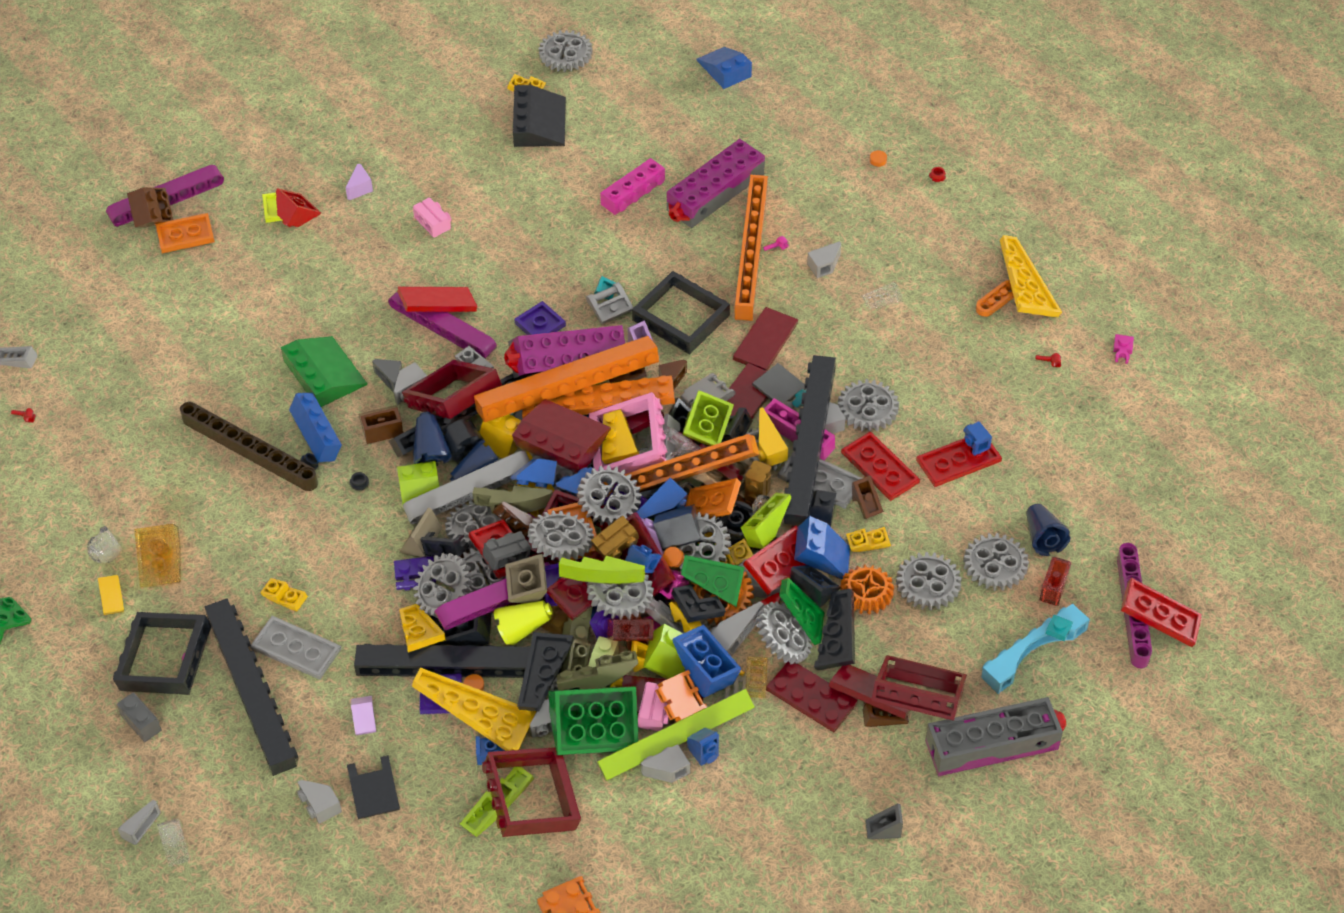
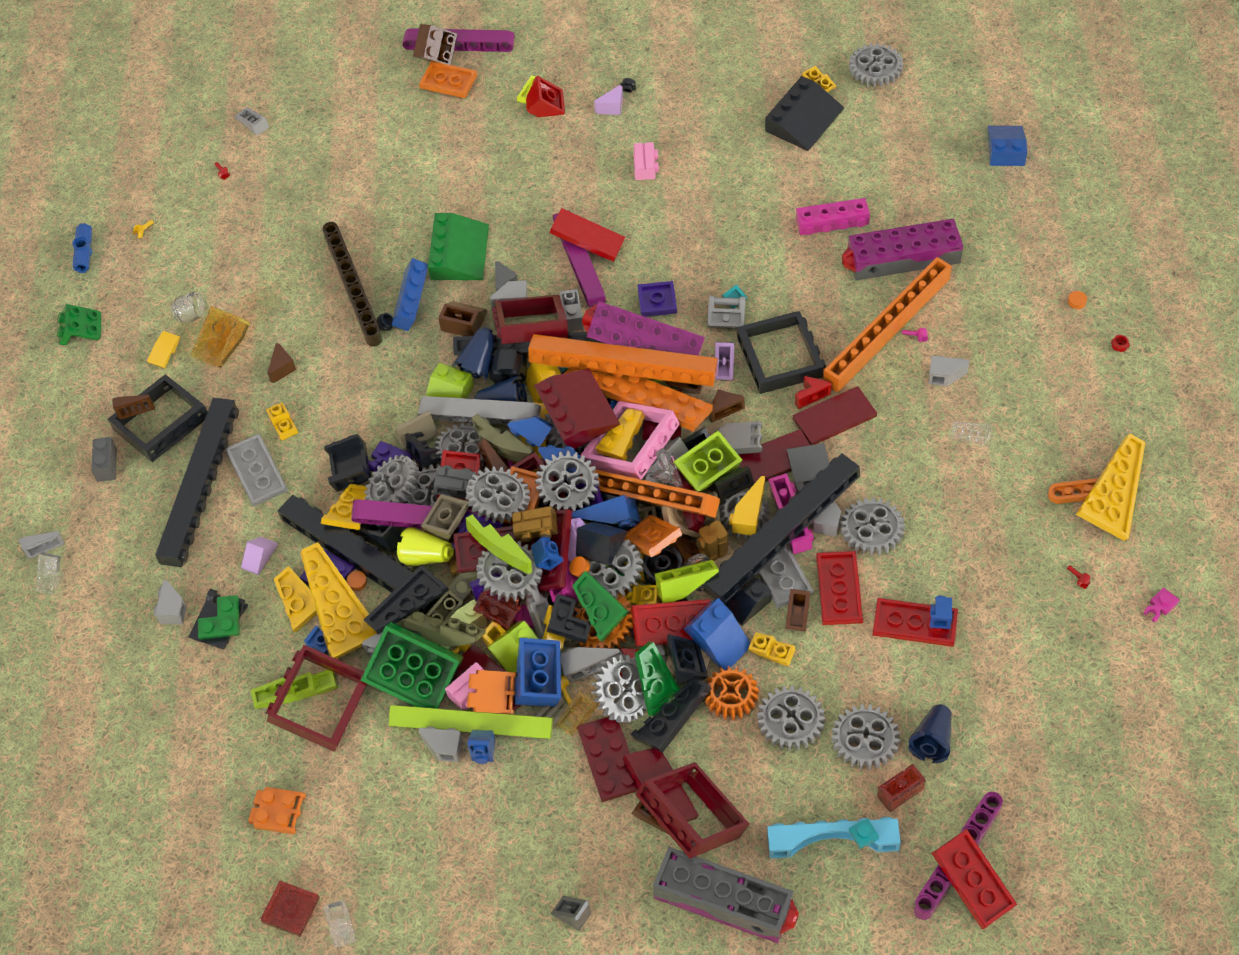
camera: 40 degrees right, 5 degrees up
(134, 652) = (127, 405): none -> reddish brown slope
(241, 546) = (280, 364): none -> reddish brown slope
(359, 481) = (409, 359): black plate -> none
(361, 159) = (628, 85): none -> black plate
(381, 593) = (348, 462): none -> black panel
(386, 785) = (226, 622): none -> green plate
(432, 727) = (296, 598): none -> yellow wing
(733, 328) = (814, 390): none -> red slope

